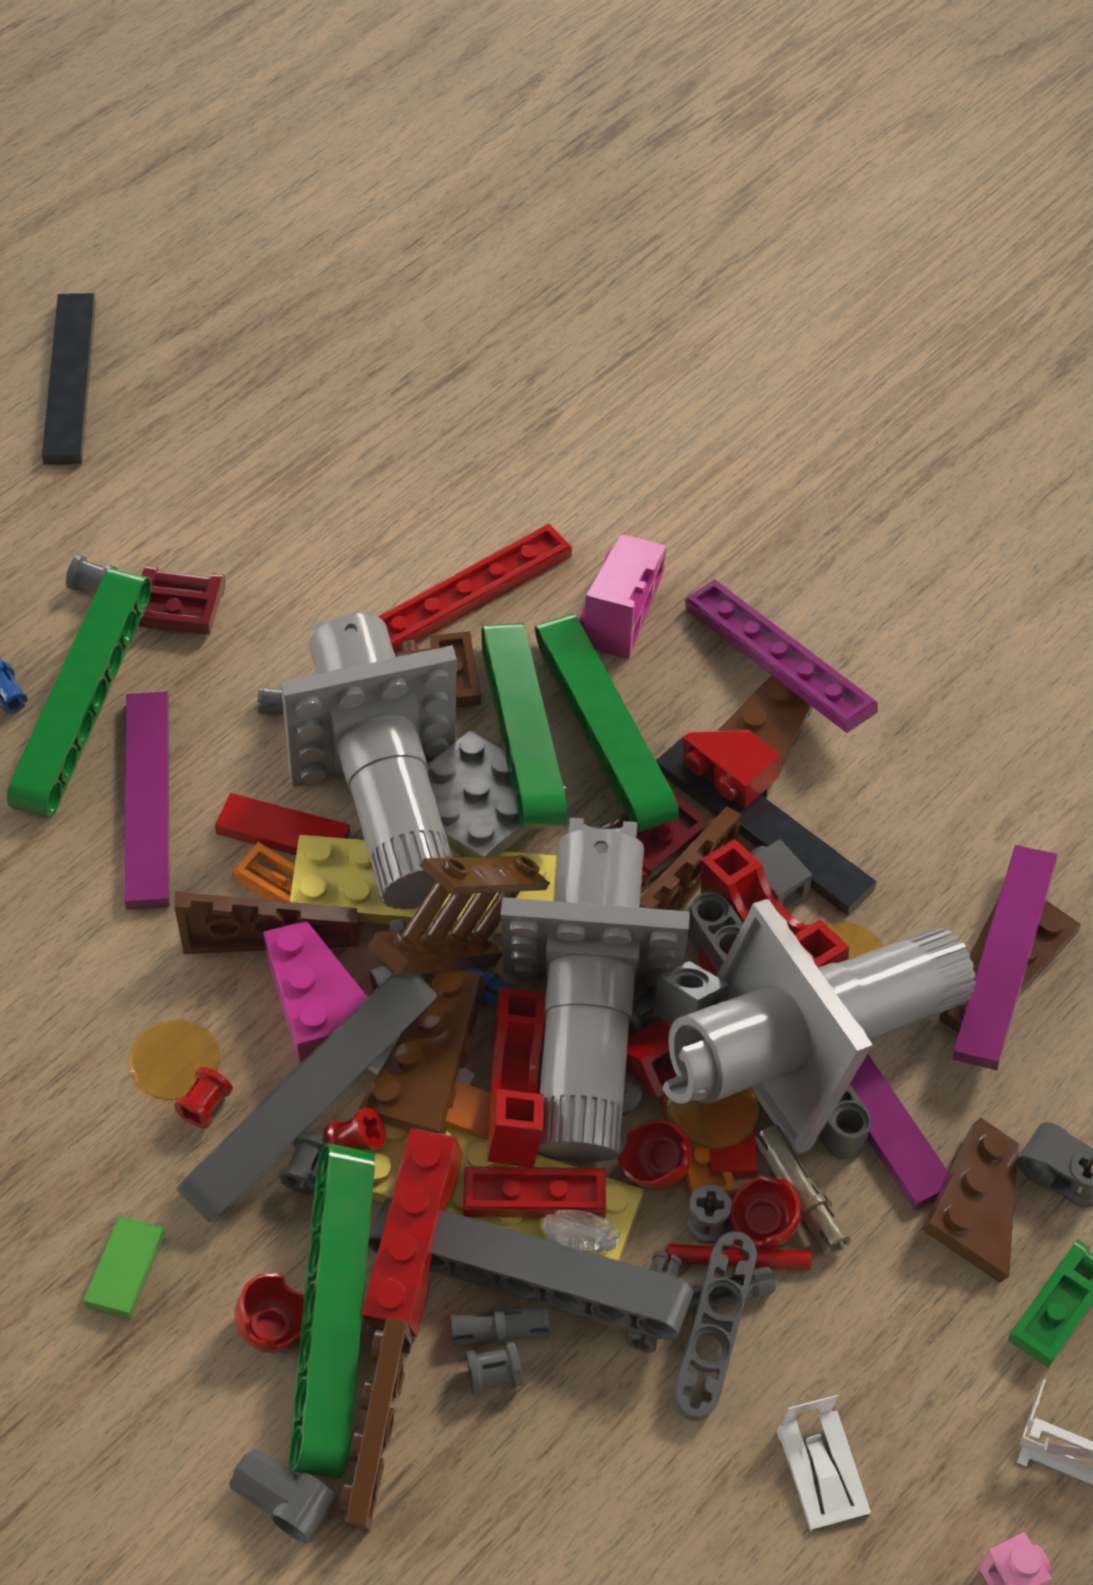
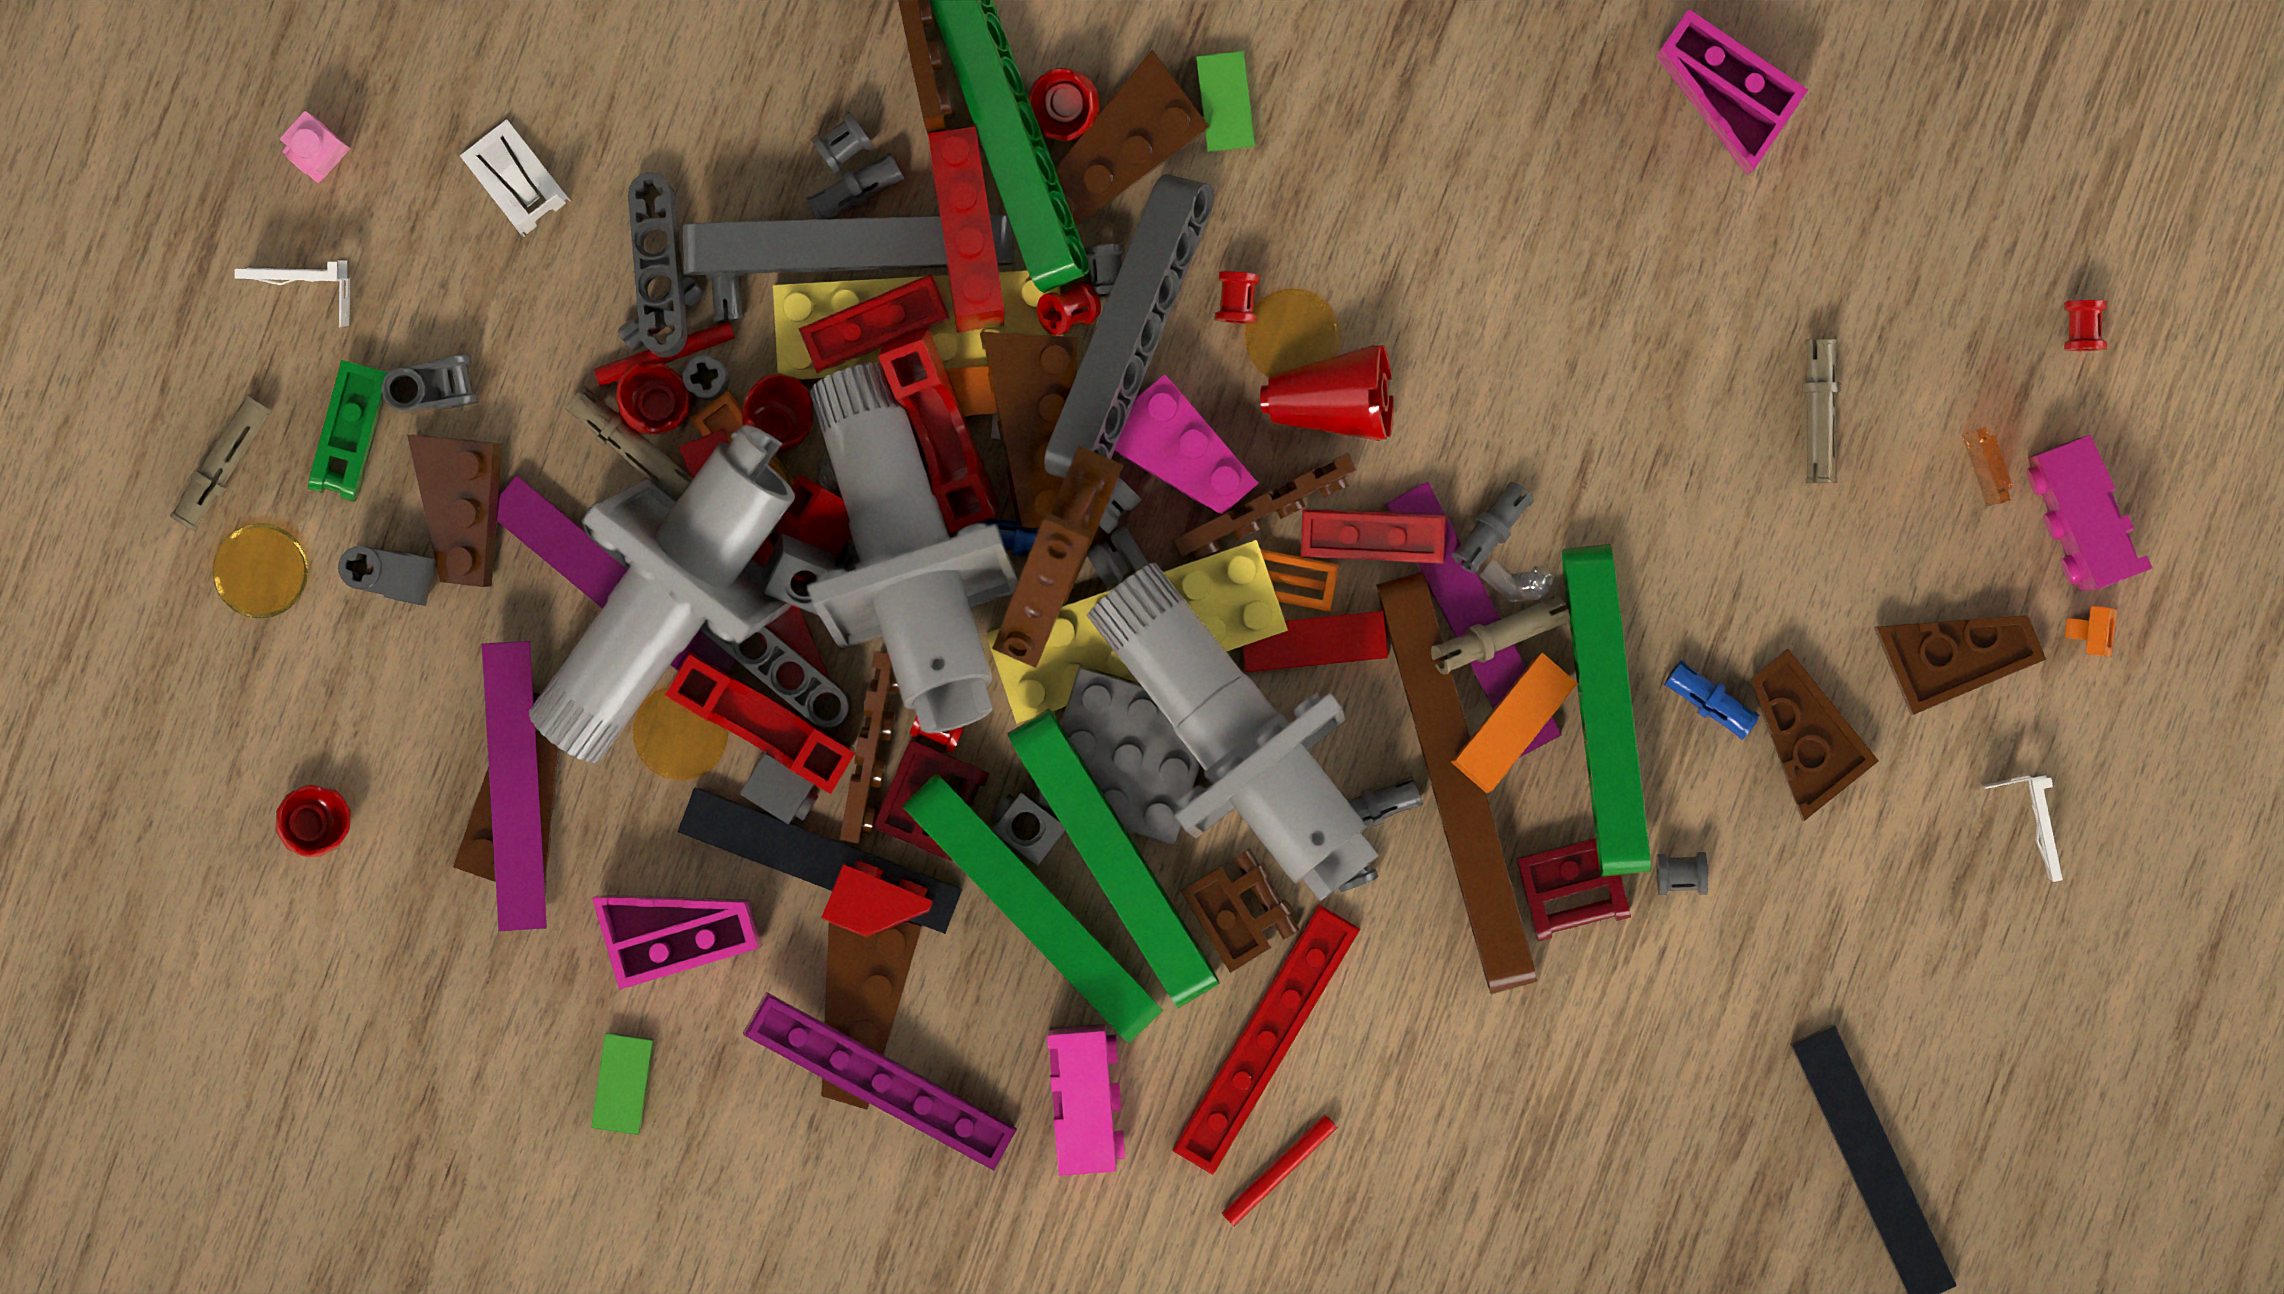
camera: 160 degrees right, 35 degrees up
(92, 846) = (1492, 527): none -> dark grey pin
(99, 804) = (1519, 586): none -> clear arm
(142, 763) = (1482, 641): none -> dark tan pin
(156, 703) = (1514, 722): none -> orange tile
(163, 983) = (1335, 395): none -> red cone
(182, 870) = (1373, 535): none -> red tile
(211, 1265) = (1129, 139): none -> reddish brown wing
(223, 698) = (1459, 800): none -> reddish brown beam
(497, 513) = (1279, 1170): none -> red bar
(581, 1230) = (824, 300): clear gear -> none
(585, 779) = (1038, 846): none -> dark grey brick
(907, 803) = (672, 934): none -> dark pink wedge
(969, 1306) = (433, 384): none -> dark grey piece
(989, 734) = (622, 1083): none -> bright green tile

